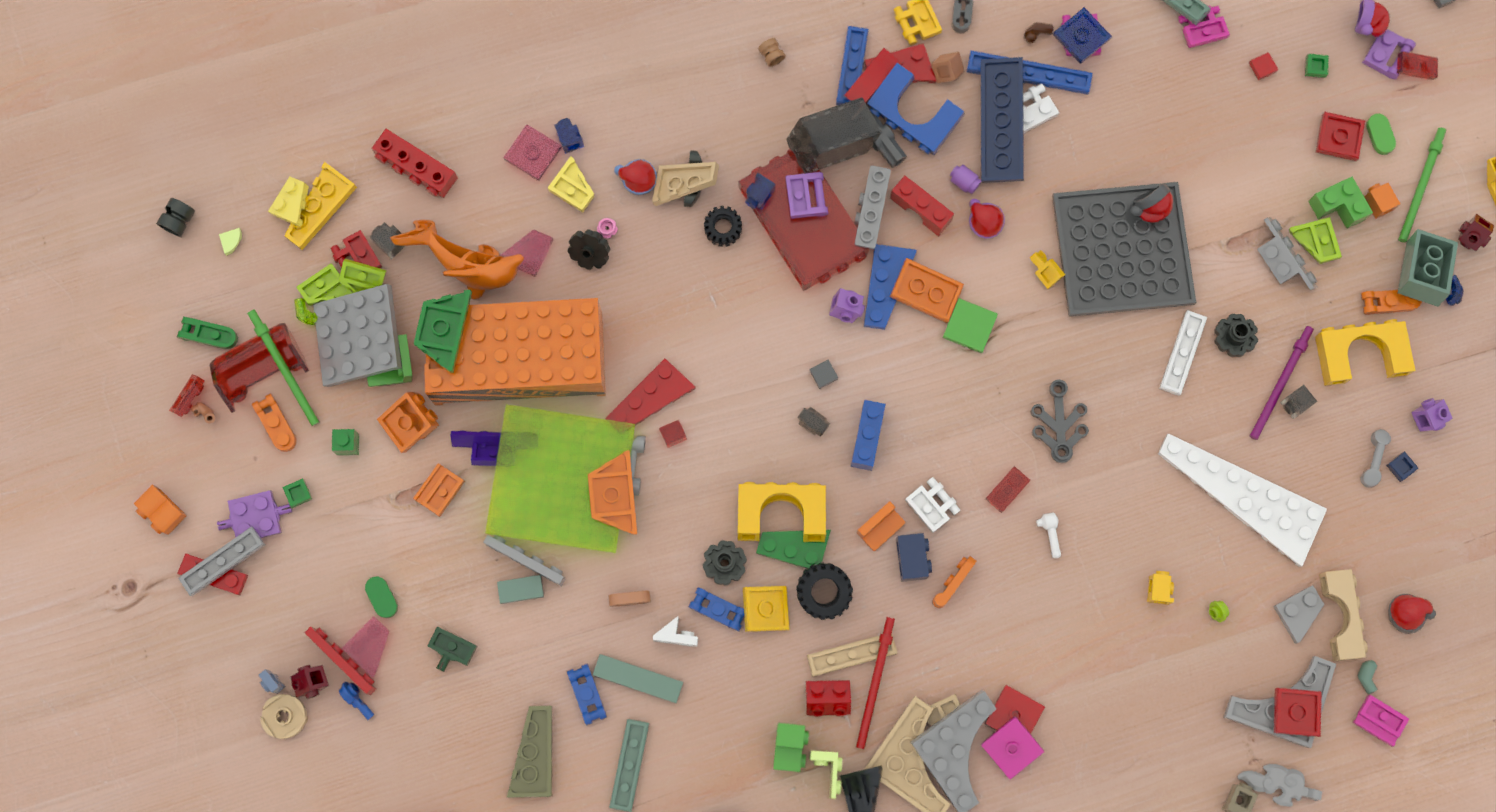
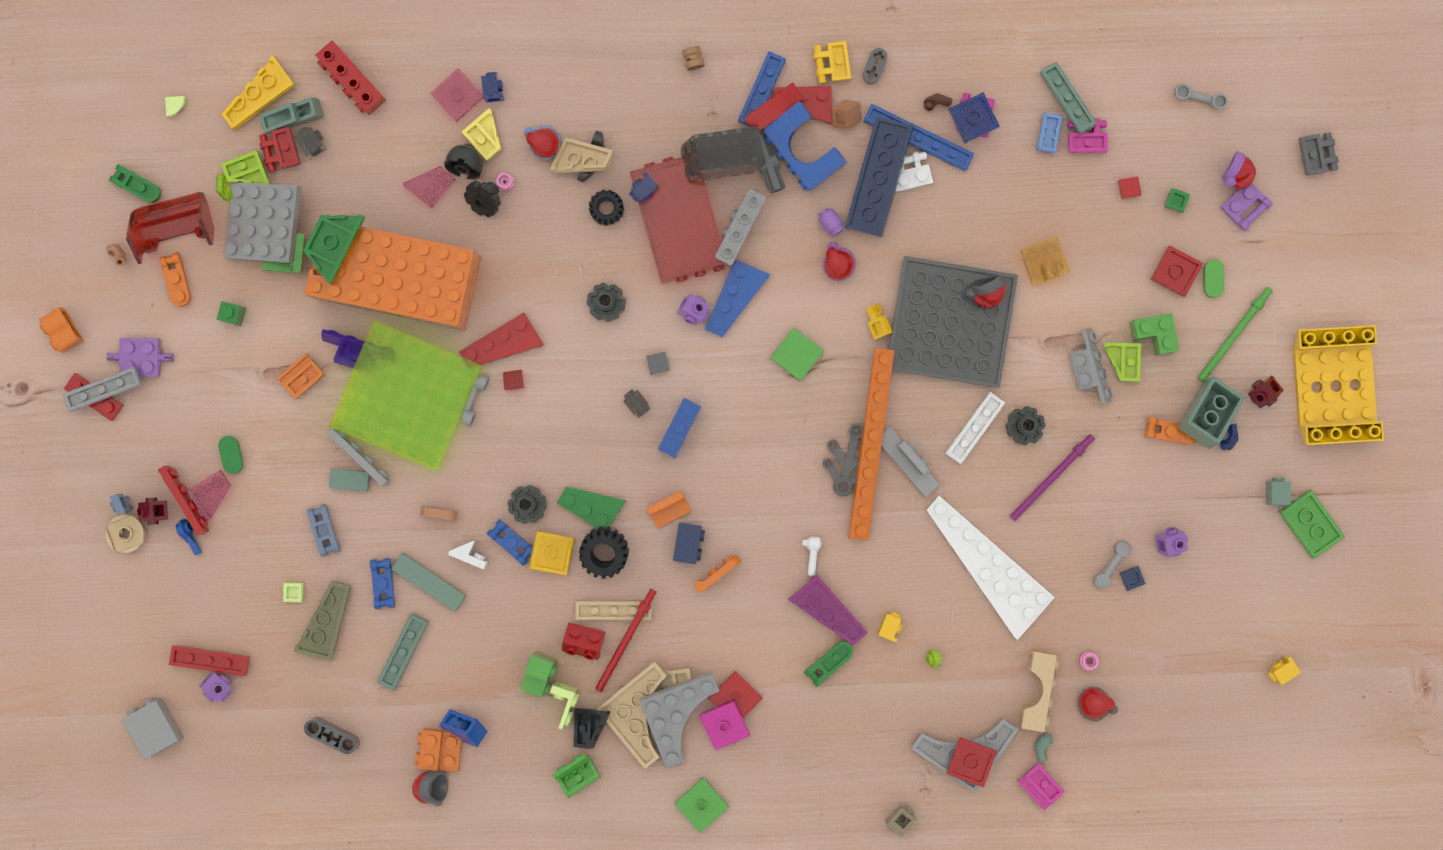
camera: 20 degrees right, 10 degrees up
(175, 217) = (130, 72): pearl dark grey wheel -> none
(183, 402) = (100, 241): clear red plate -> none
(262, 331) = (181, 197): bright green bar -> none
(290, 201) = (234, 84): light yellow wing -> none
(297, 493) = (180, 346): green plate -> none
(360, 217) = (291, 115): none -> sand green slope
(360, 276) = (278, 171): lime wing -> none
(408, 421) = (289, 309): orange plate -> none
(451, 648) = (278, 514): dark green plate -> none
(475, 269) = (380, 191): orange animal -> none
(489, 731) = (293, 592): none -> yellowish green tile
(505, 652) = (323, 530): none -> sand blue plate
(559, 217) = (464, 160): none -> pearl dark grey cylinder
(613, 494) = (446, 422): orange wing -> none
(750, 333) = (603, 292): none -> pearl dark grey plant
(799, 195) = (678, 201): medium lavender plate -> none
(807, 498) = (567, 456): yellow arch -> none
(911, 196) = (785, 235): red arch -> none
(926, 290) = (767, 313): orange tile -> none
(928, 509) = (712, 504): white plate -> none
(1007, 489) = (787, 506): clear red plate -> none
(1079, 398) = (871, 444): none -> orange plate
(1080, 585) = (825, 607): none -> magenta wing
(1106, 646) = (830, 662): none -> green plate
(1124, 404) = (909, 462): none -> light grey bracket
(1163, 32) = (1049, 133): none -> medium blue plate
(1200, 161) = (1044, 261): none -> clear yellow plate
(1277, 776) = (939, 808): light grey piece -> none
(1298, 401) = (1059, 499): clear smoke brick -> none
(1299, 612) = (1003, 677): light grey wing -> none
(1381, 199) = (1192, 339): orange brick -> none
(1388, 337) = (1159, 467): yellow arch -> none
(1393, 567) = (1095, 661): none -> bright pink plate
(1417, 65) = (1267, 224): clear red plate -> none

